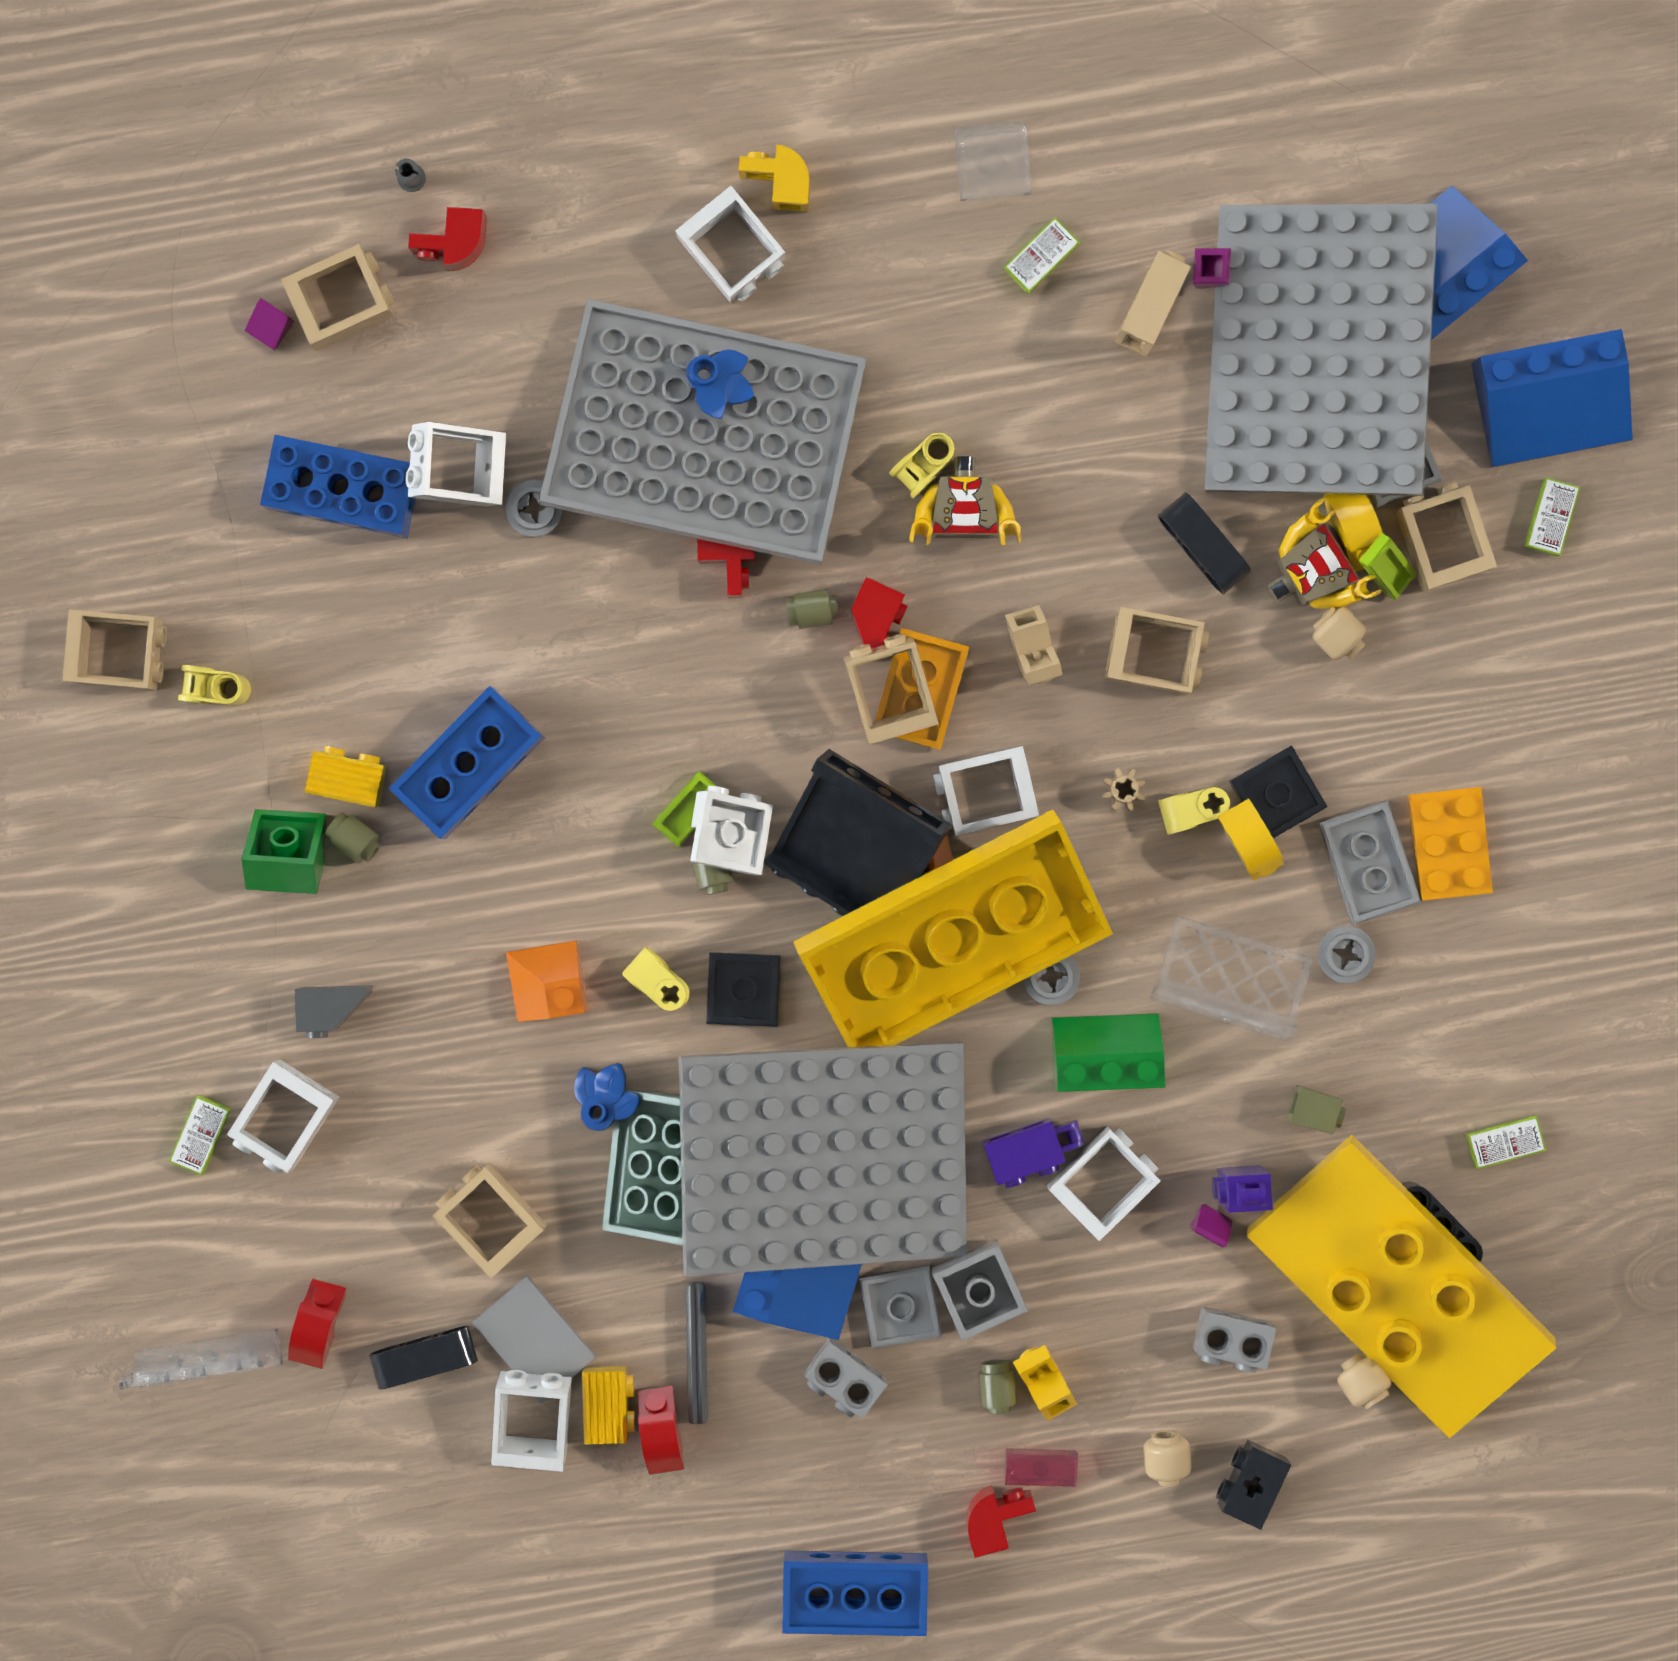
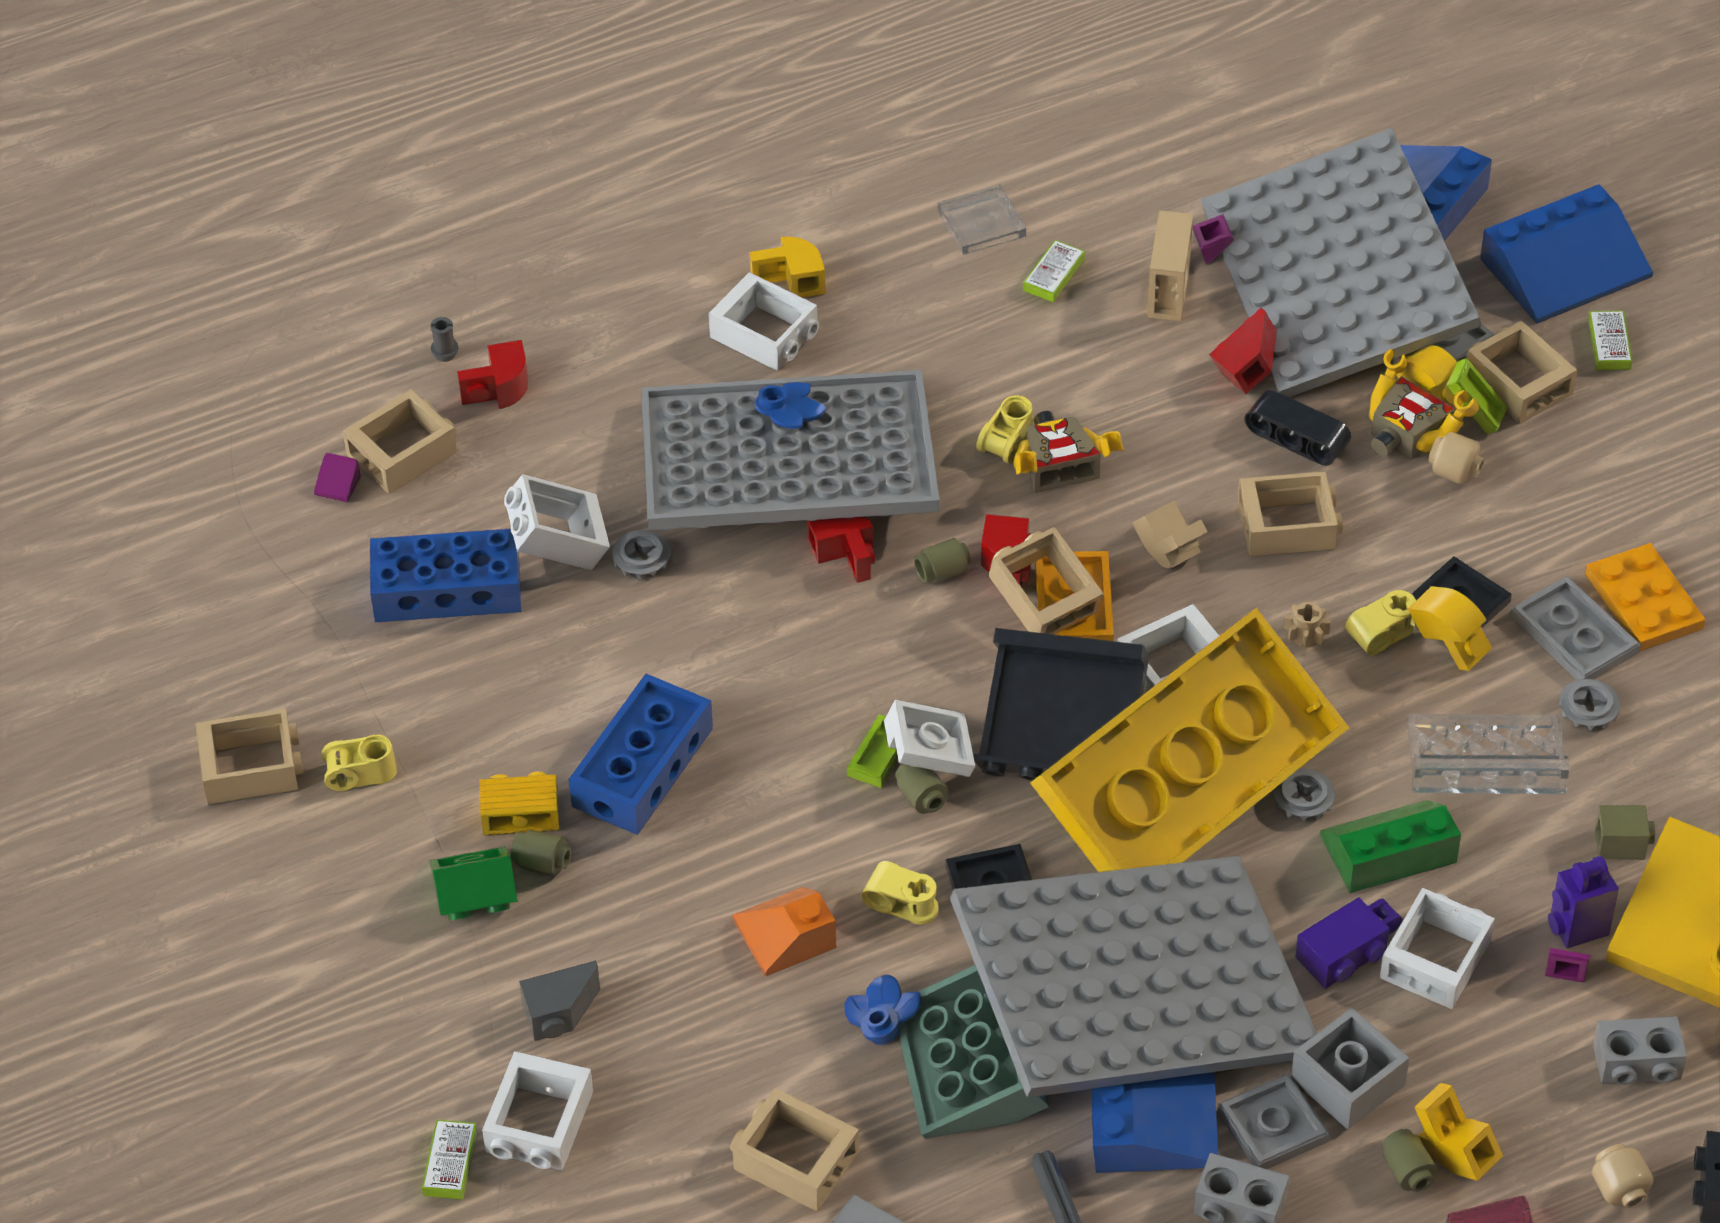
camera: 10 degrees left, 40 degrees down
(1189, 442) = (1248, 352): none -> red slope

